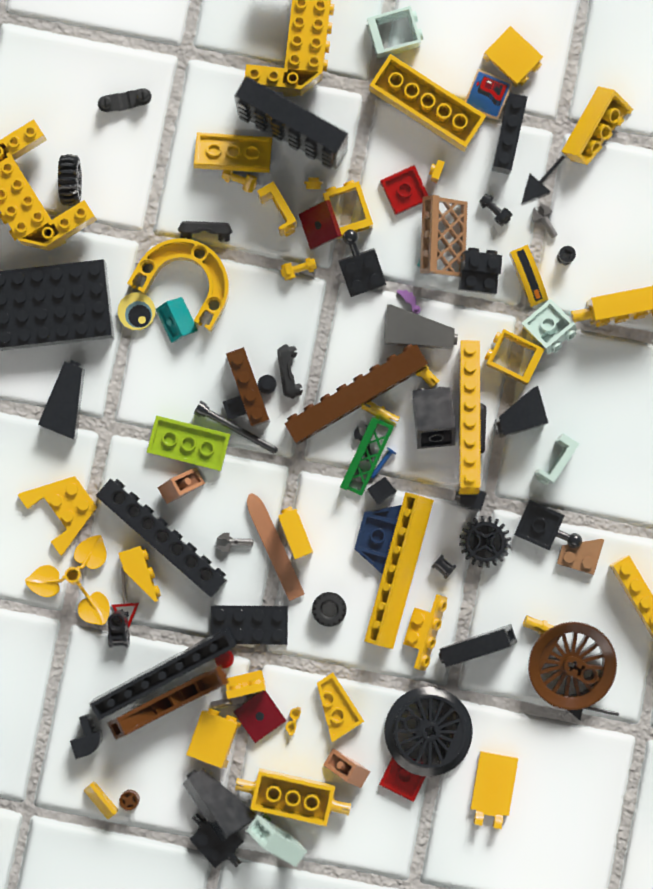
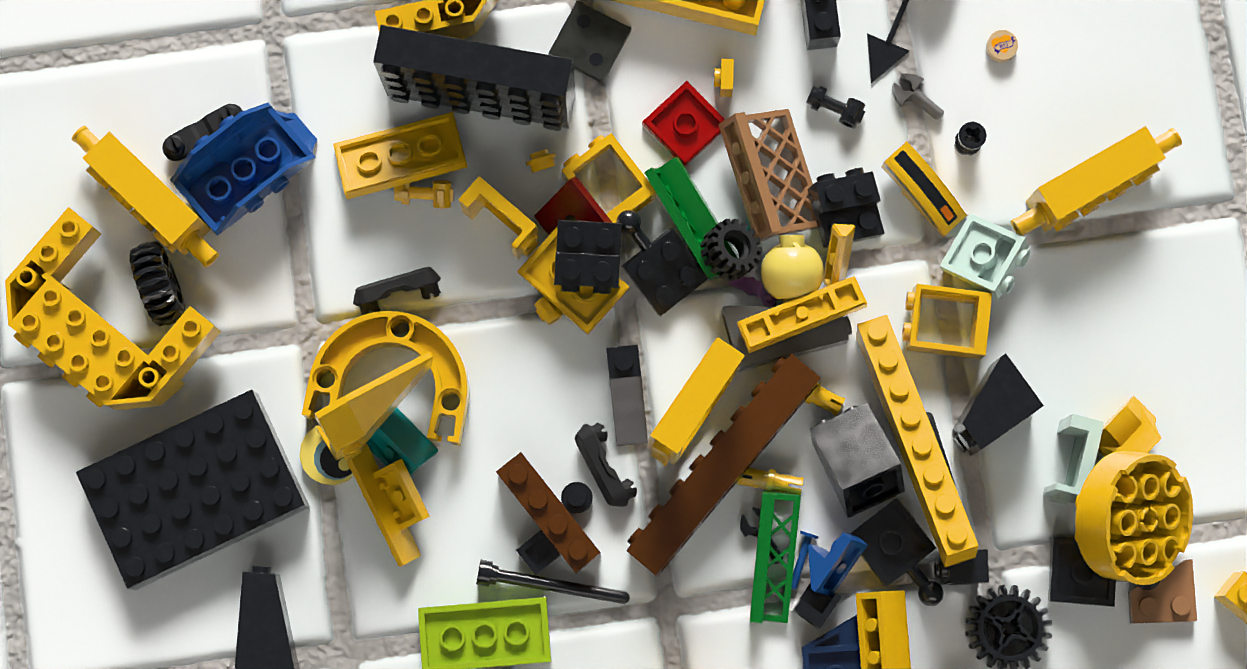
camera: 20 degrees left, 5 degrees down
(77, 121) = (141, 189): none -> yellow brick
(141, 127) = (243, 164): none -> blue slope
(157, 295) = (358, 415): none -> yellow wedge
(161, 349) = (392, 502): none -> yellow bracket
(307, 259) = (581, 307): none -> yellow tile
(315, 335) = (627, 395): none -> black slope
(320, 248) = (588, 255): none -> black plate
(350, 353) = (694, 402): none -> yellow window
(366, 122) = (591, 41): none -> pearl dark grey tile
(389, 247) = (686, 208): none -> green fence
(397, 472) = (832, 567): none -> blue slope
(412, 270) = (742, 241): none -> black tyre
(430, 323) = (802, 314): none -> yellow plate
(434, 296) = (791, 269): none -> light yellow brick
(436, 473) = (896, 547): none -> black plate
(464, 298) = (838, 253): none -> yellow slope
(577, 503) = (1133, 517): none -> yellow brick
(594, 456) = (1130, 429): none -> yellow slope
(605, 207) = (1002, 46): none -> tan tile

